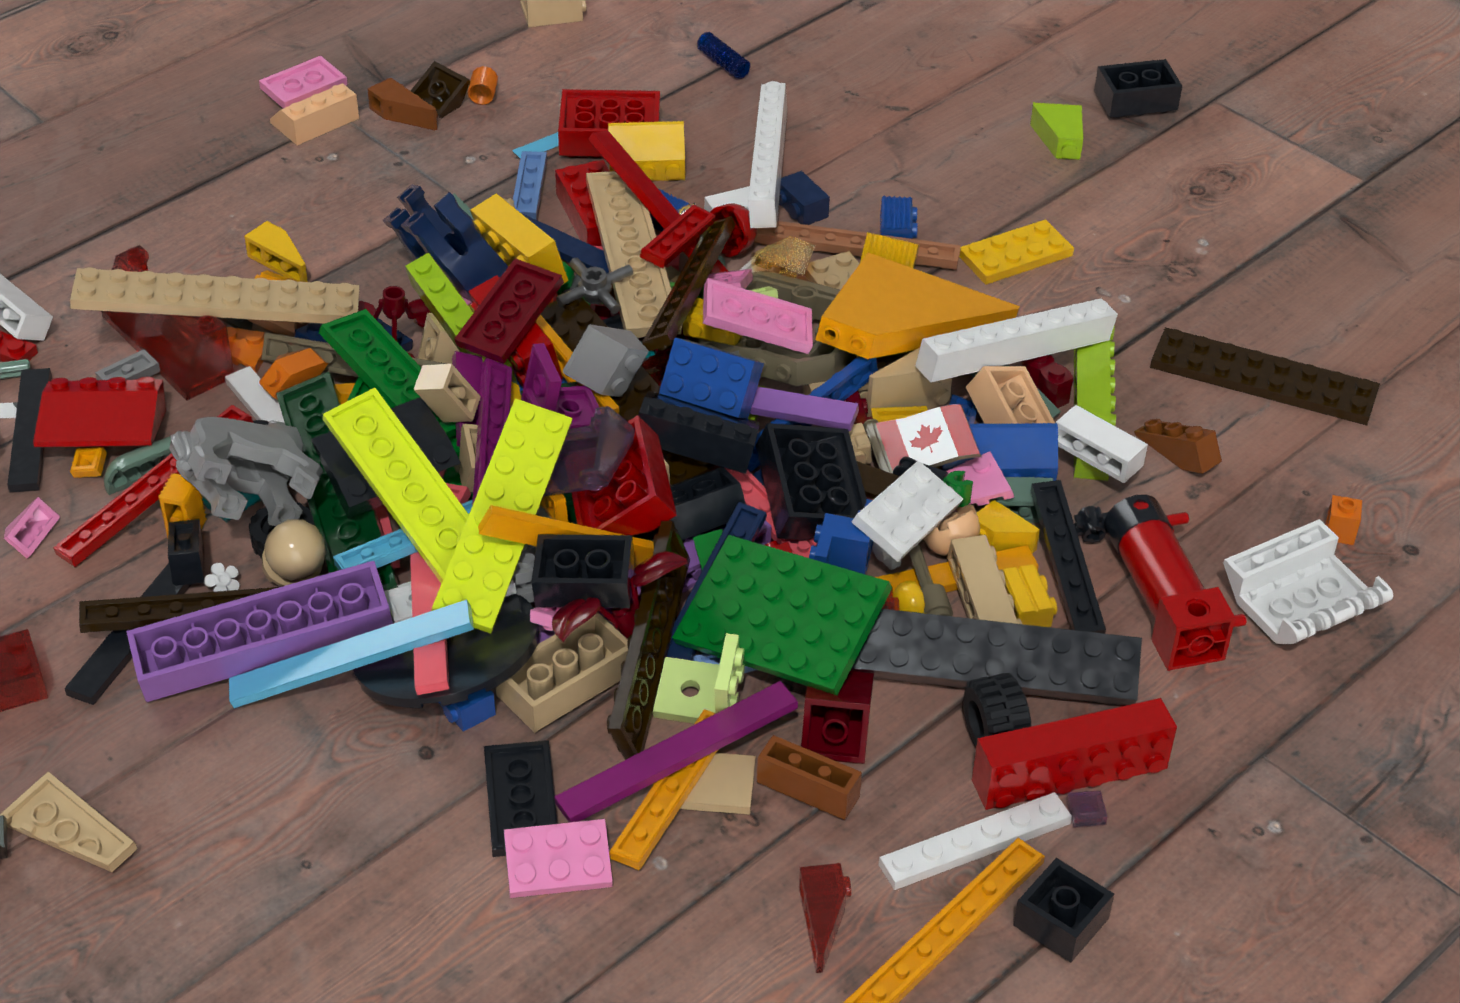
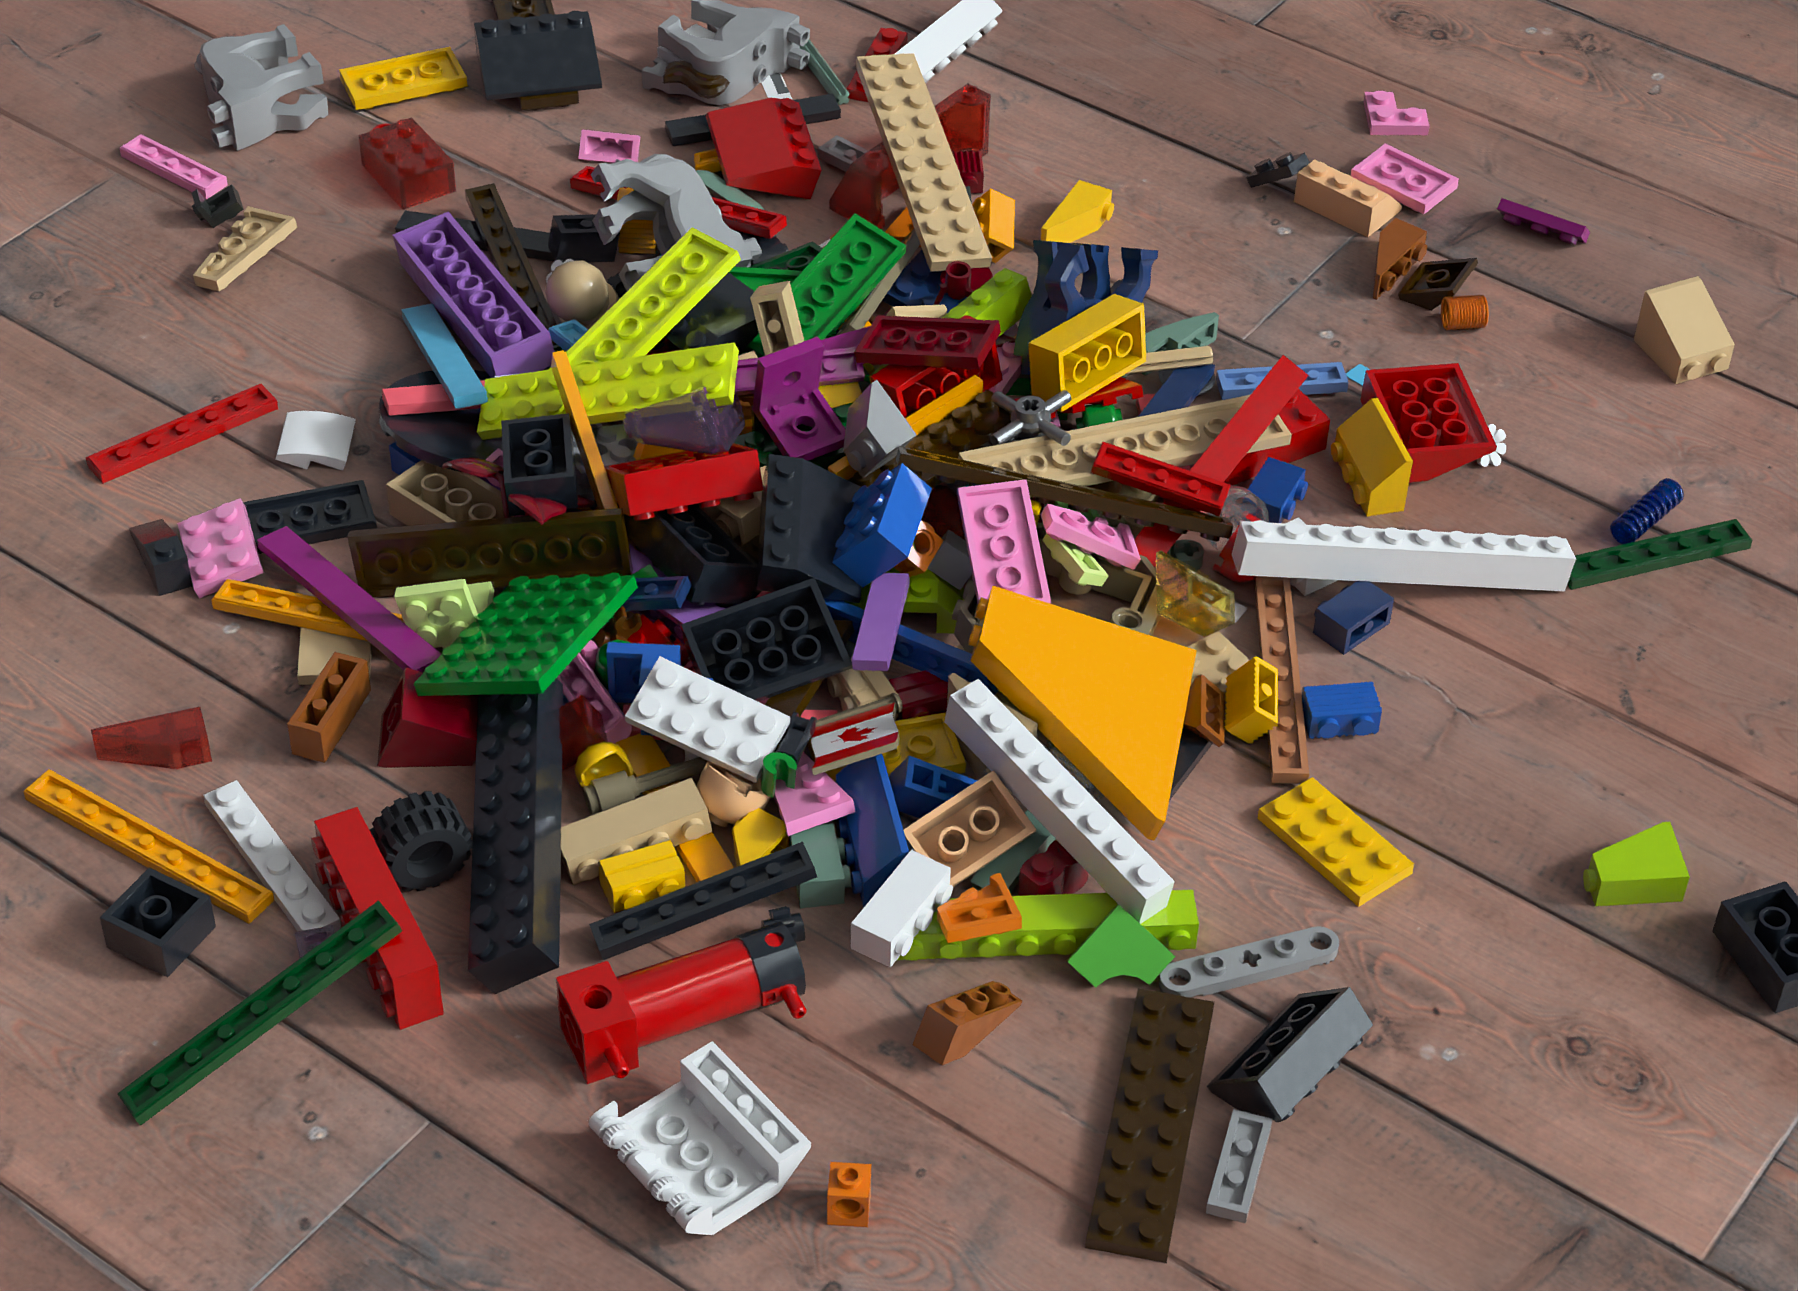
camera: 80 degrees right, 0 degrees up
(216, 79) = (1386, 119): none -> bright pink plate
(273, 135) = (1281, 168): none -> black plate
(361, 892) = (181, 433): none -> red tile
(387, 31) = (1543, 222): none -> magenta plate
(411, 779) = (315, 438): none -> white slope
(552, 905) = (162, 556): none -> black slope
(758, 54) = (1658, 553): none -> dark green tile
(1103, 401) = (980, 912): none -> orange wing
(1126, 357) = (1120, 948): none -> bright green tile
(1130, 315) = (1272, 957): none -> light grey piece
(1188, 833) = (259, 1013): none -> dark green tile
(1213, 300) = (1293, 1053): none -> slope
(1306, 340) = (1239, 1166): none -> light grey plate

